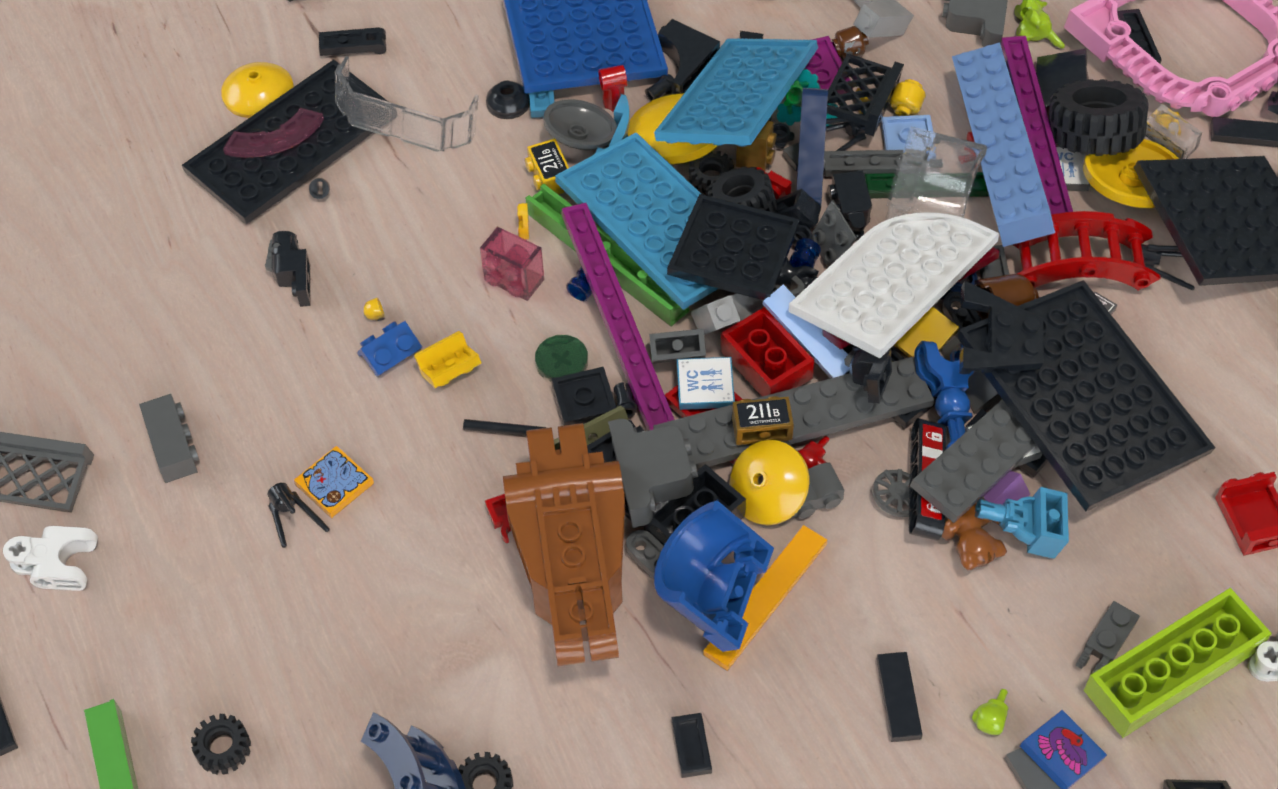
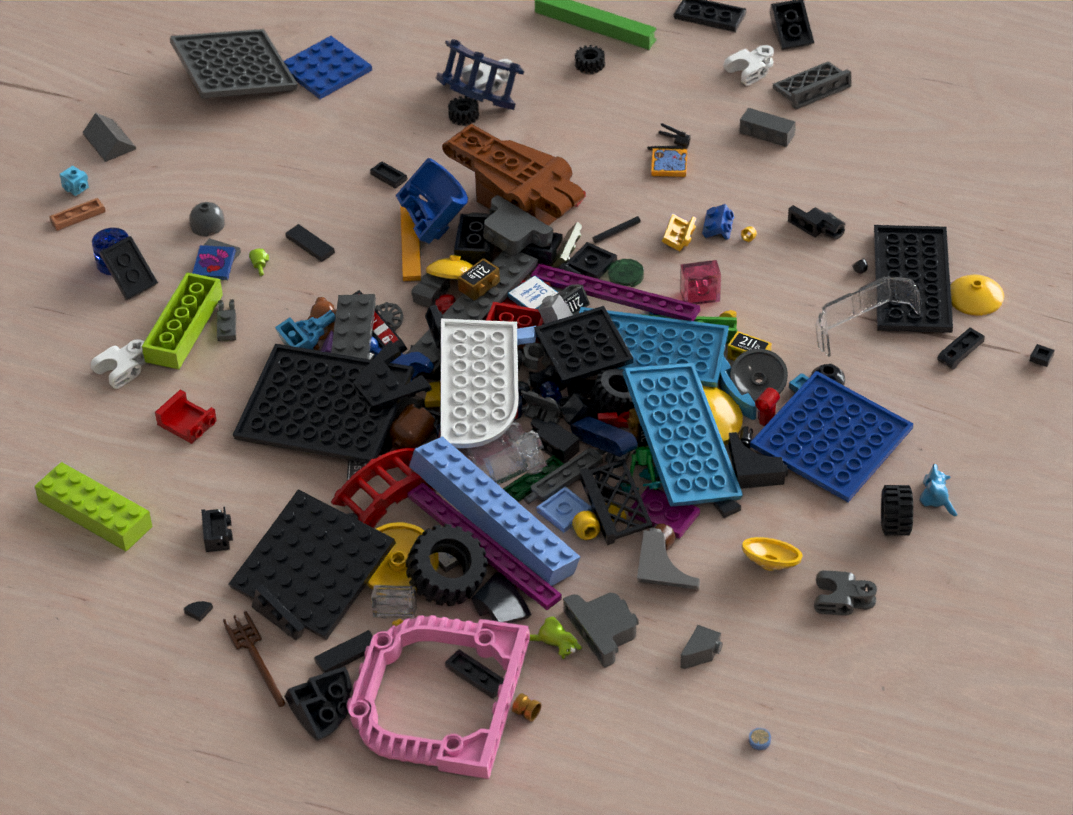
camera: 140 degrees right, 10 degrees down
(264, 144) = (917, 261): clear pink tile -> none

